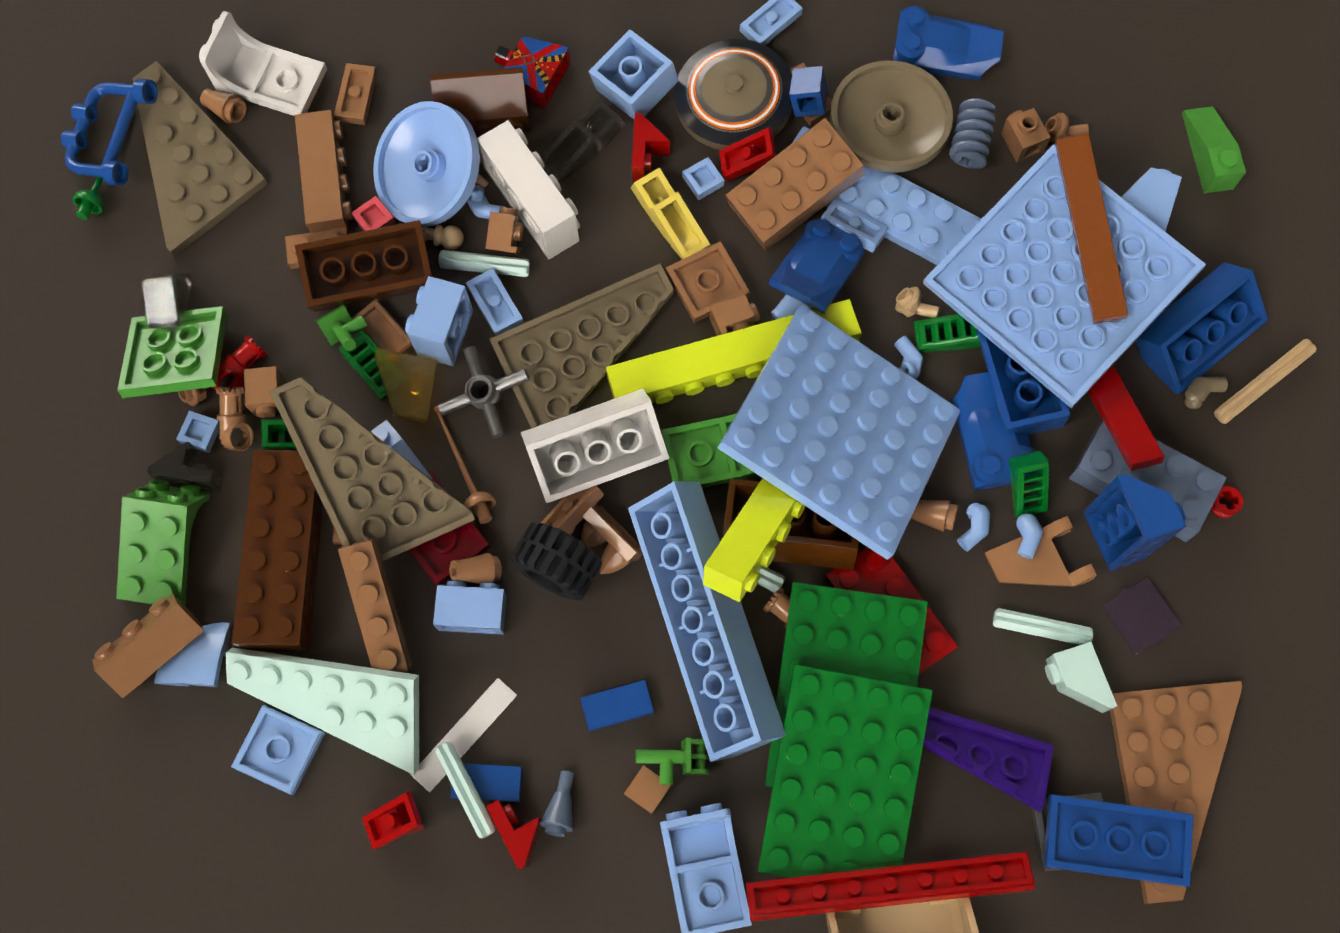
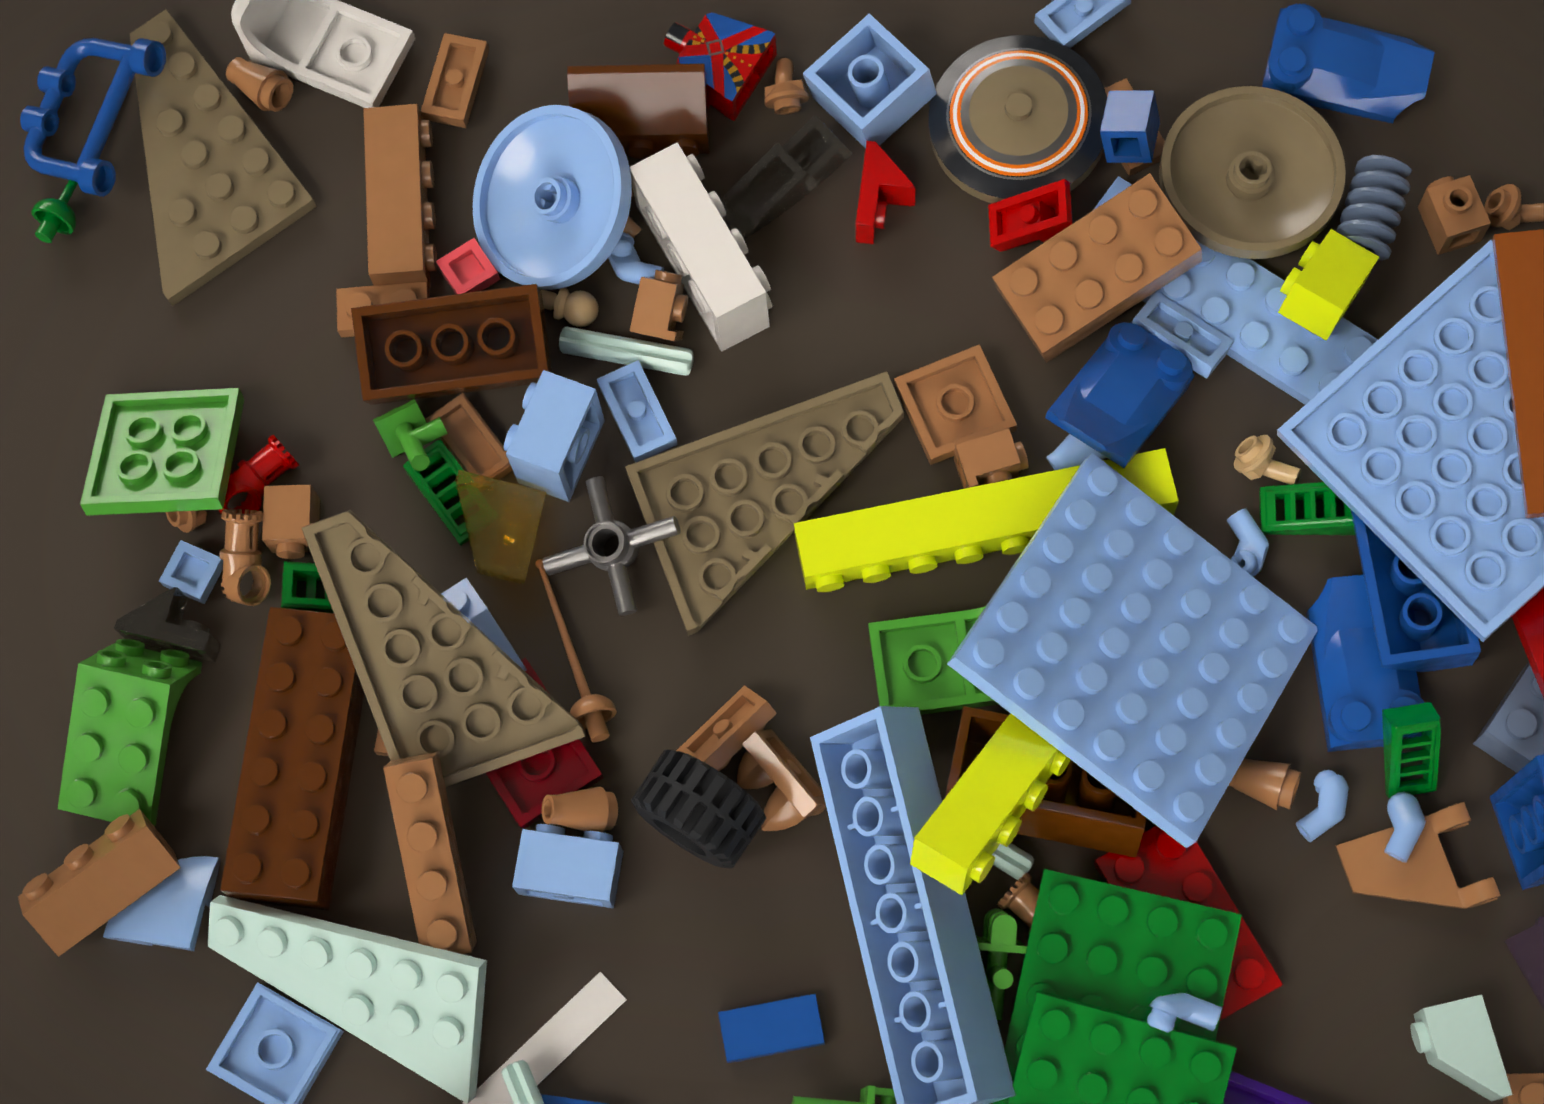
camera: 10 degrees right, 0 degrees up
(166, 299) = (158, 372): clear smoke slope -> none
(578, 88) = (785, 94): none -> medium nougat plate
(595, 445) = (769, 640): white brick -> none
(669, 214) = (907, 297): light yellow slope -> none
(703, 178) = (961, 246): light blue plate -> none
(766, 631) = (998, 940): none -> bright green arm
(895, 666) = (1183, 1006): none -> light blue arm
(946, 184) = (1327, 283): none -> neon yellow brick
(1042, 626) = (1412, 965): light aqua axle -> none

